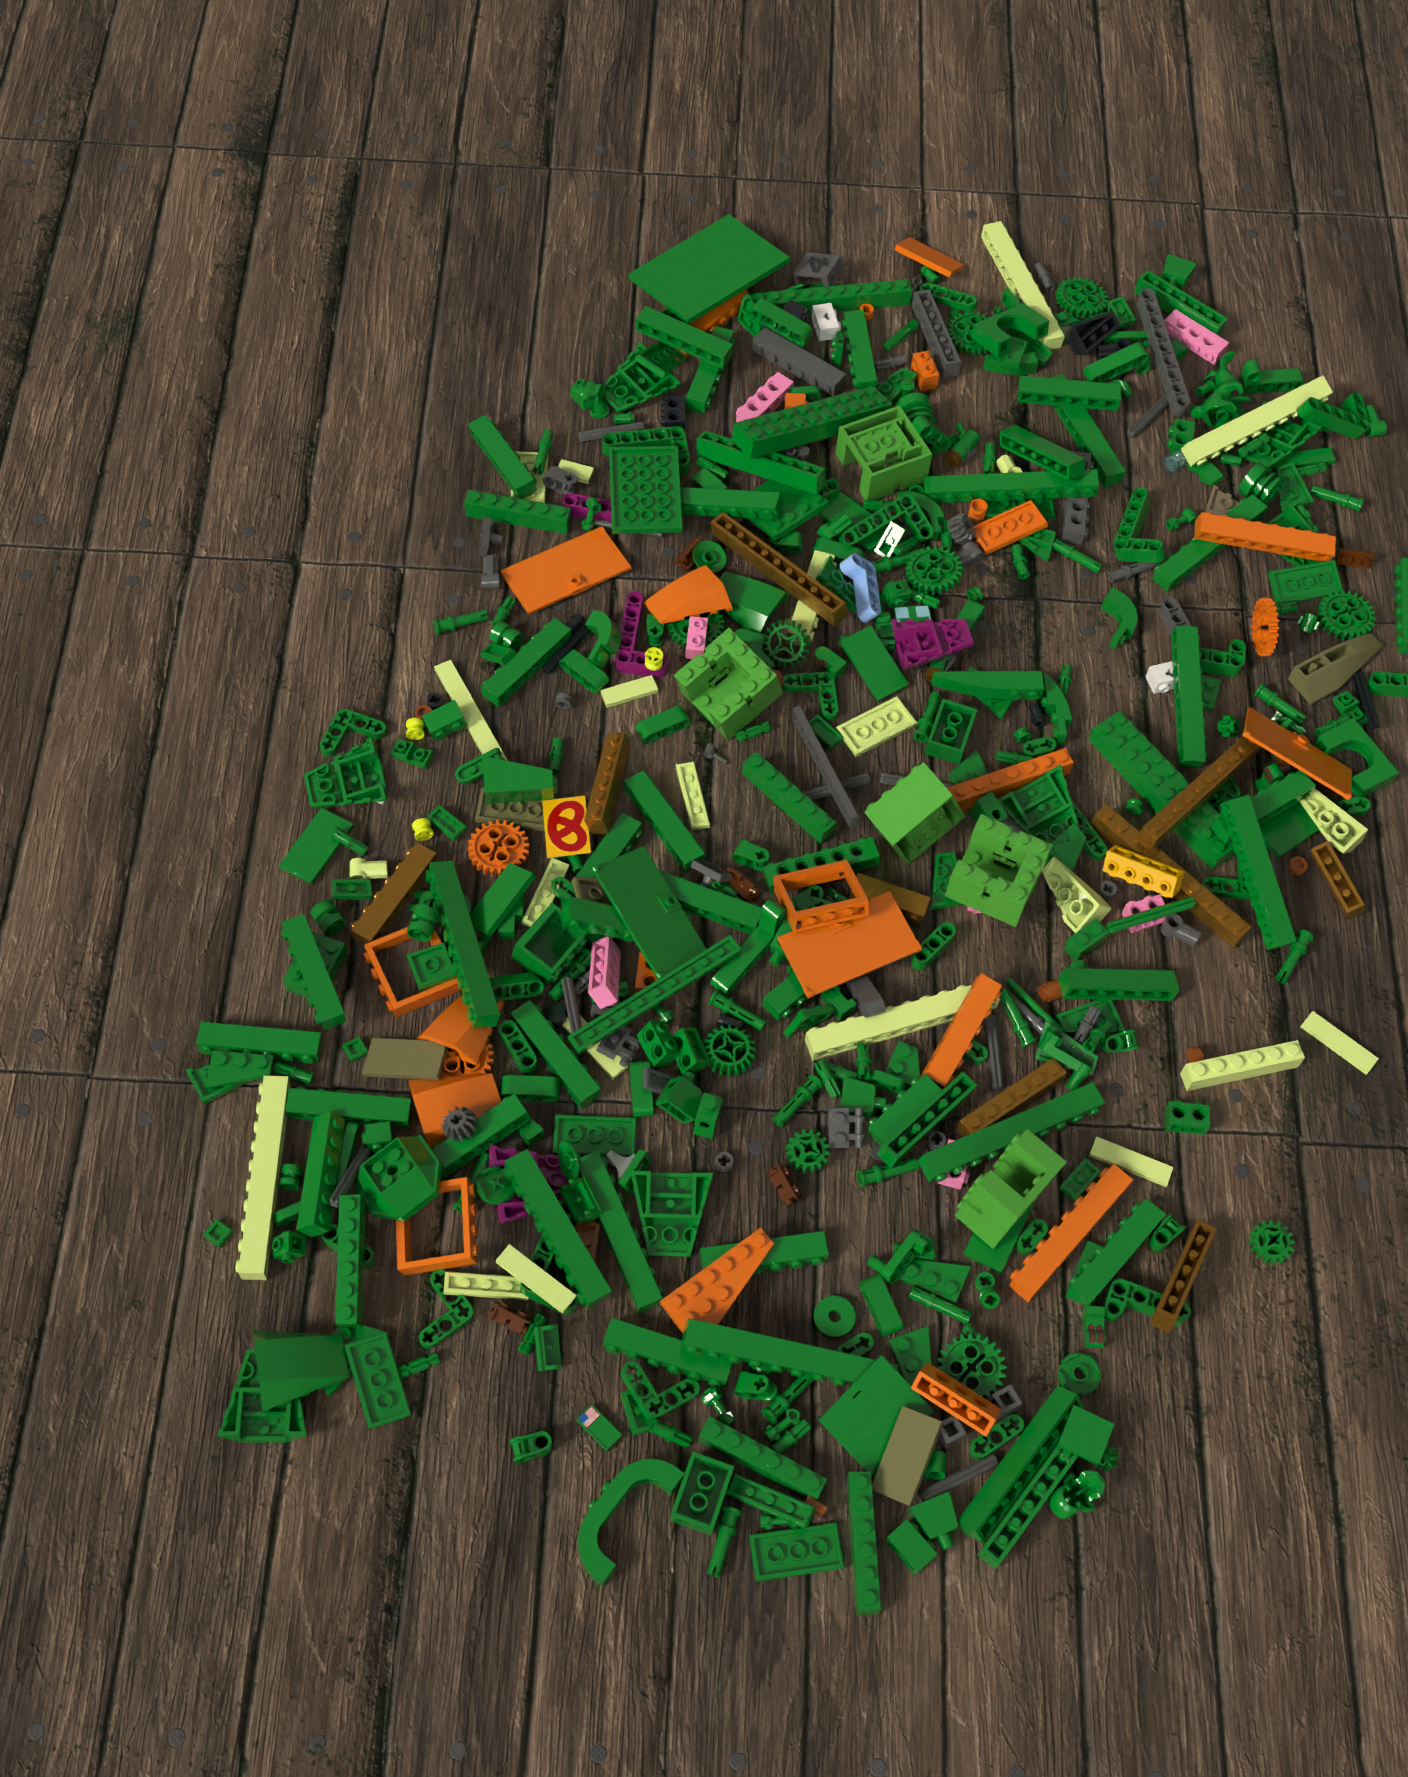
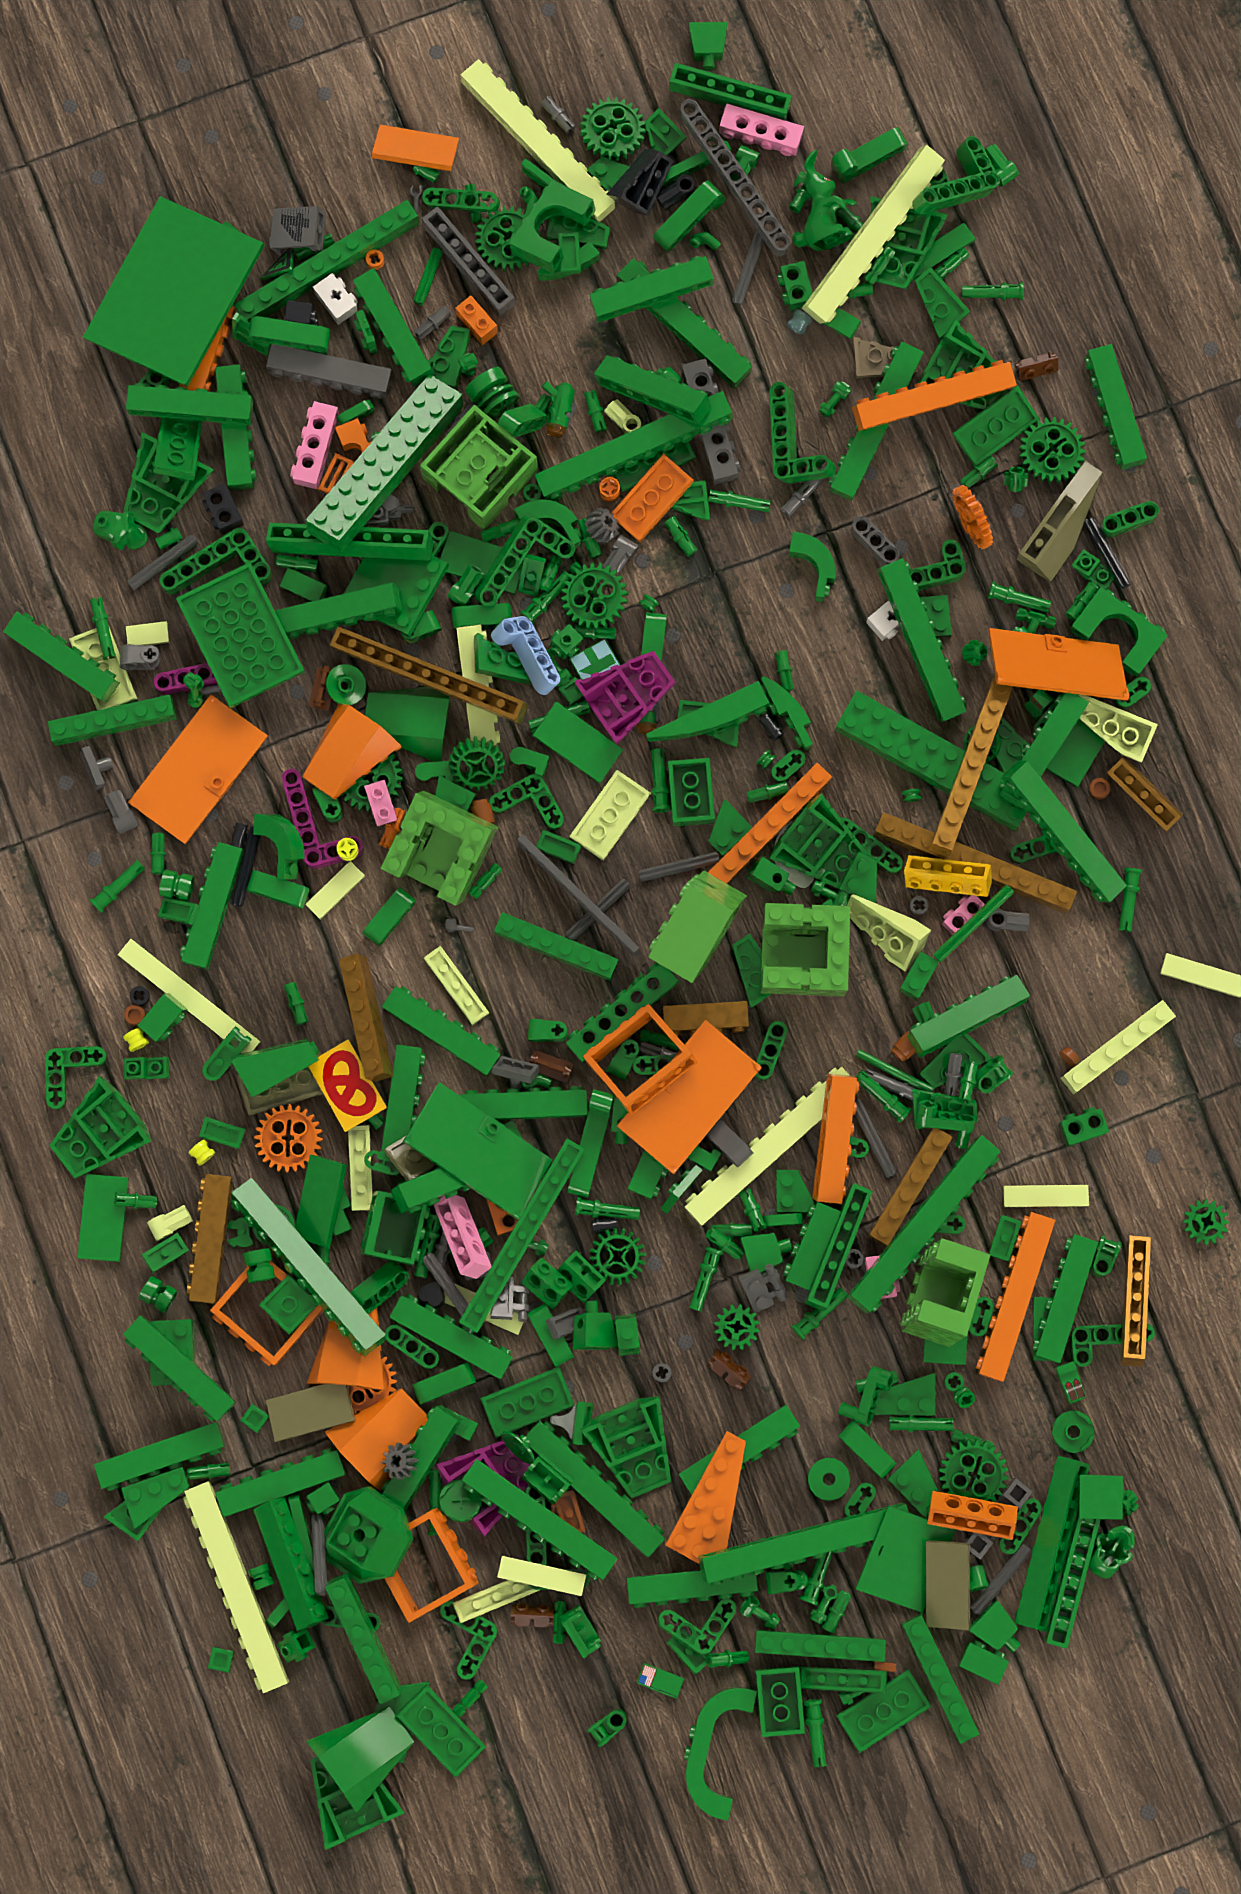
camera: 20 degrees left, 20 degrees up
(563, 701) = (273, 935): dark grey bush -> none
(1258, 483) = (906, 319): green wheel -> none

